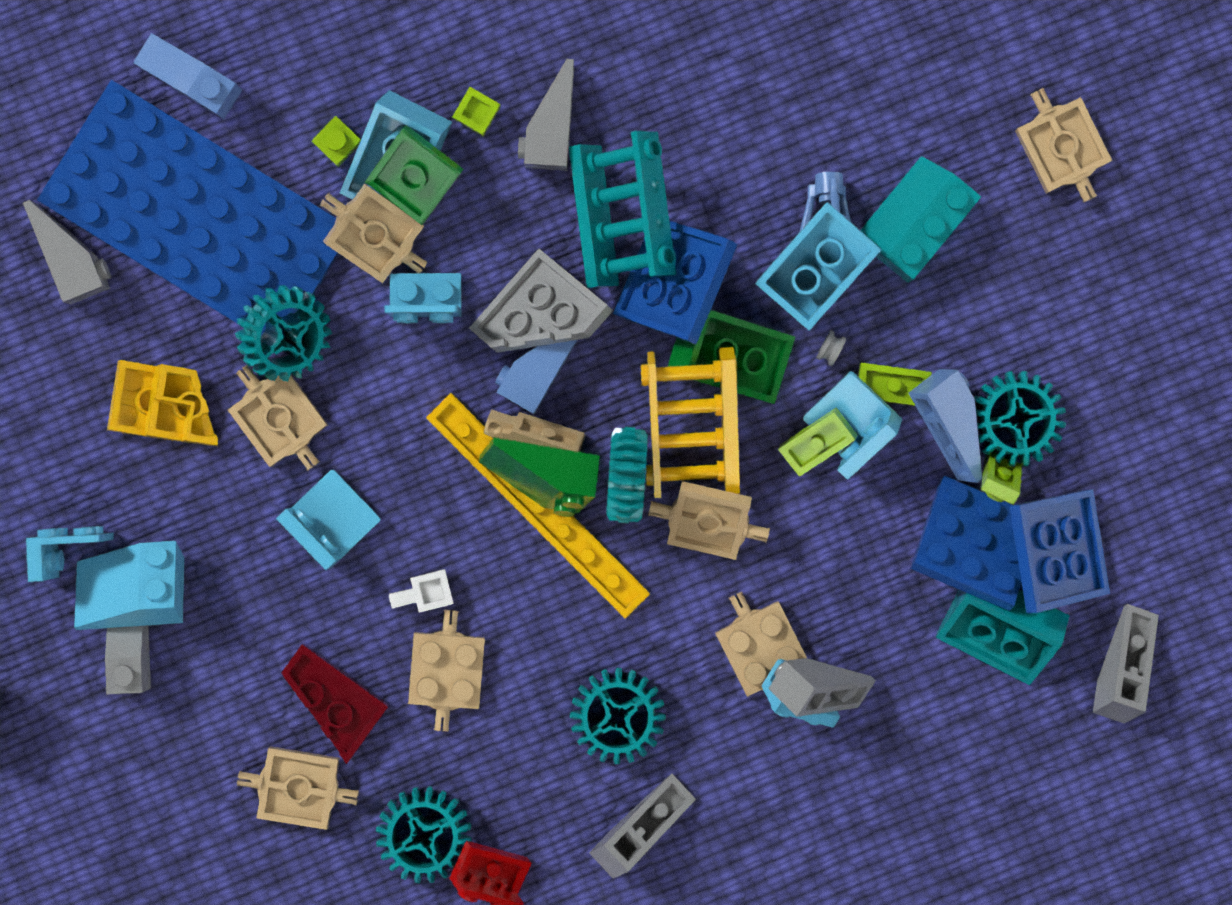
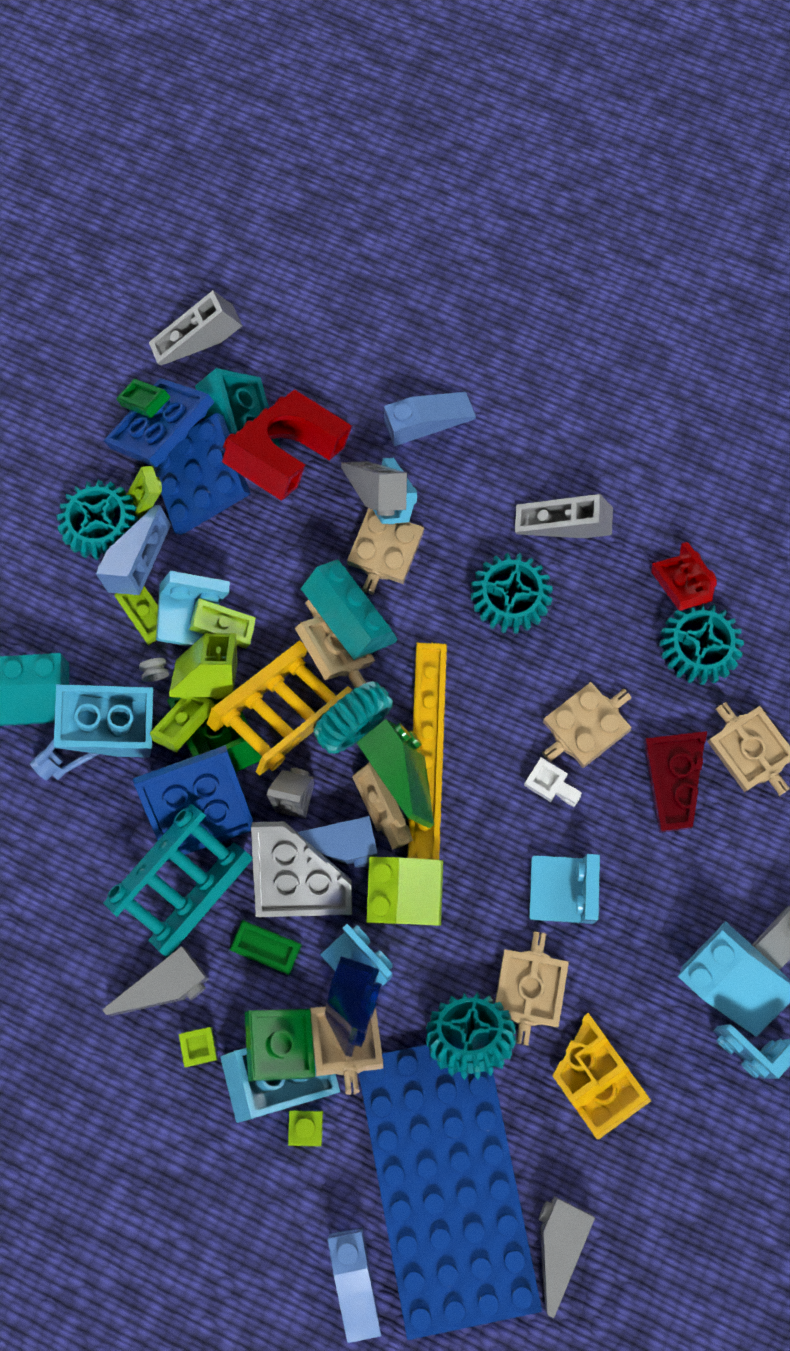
camera: 125 degrees left, 15 degrees down
(394, 259) = (352, 1002): none -> clear blue slope
(445, 386) = (404, 891): none -> lime slope
(507, 235) = (266, 947): none -> green tile
(612, 369) = (291, 792): none -> light grey slope
(727, 558) = (347, 610): none -> teal slope
(755, 330) = (181, 722): none -> lime plate
(786, 390) = (206, 668): none -> lime slope
(850, 799) = (426, 415): none -> medium blue slope
(954, 675) = (291, 417): none -> red arch
(1099, 558) = (143, 398): none -> green tile

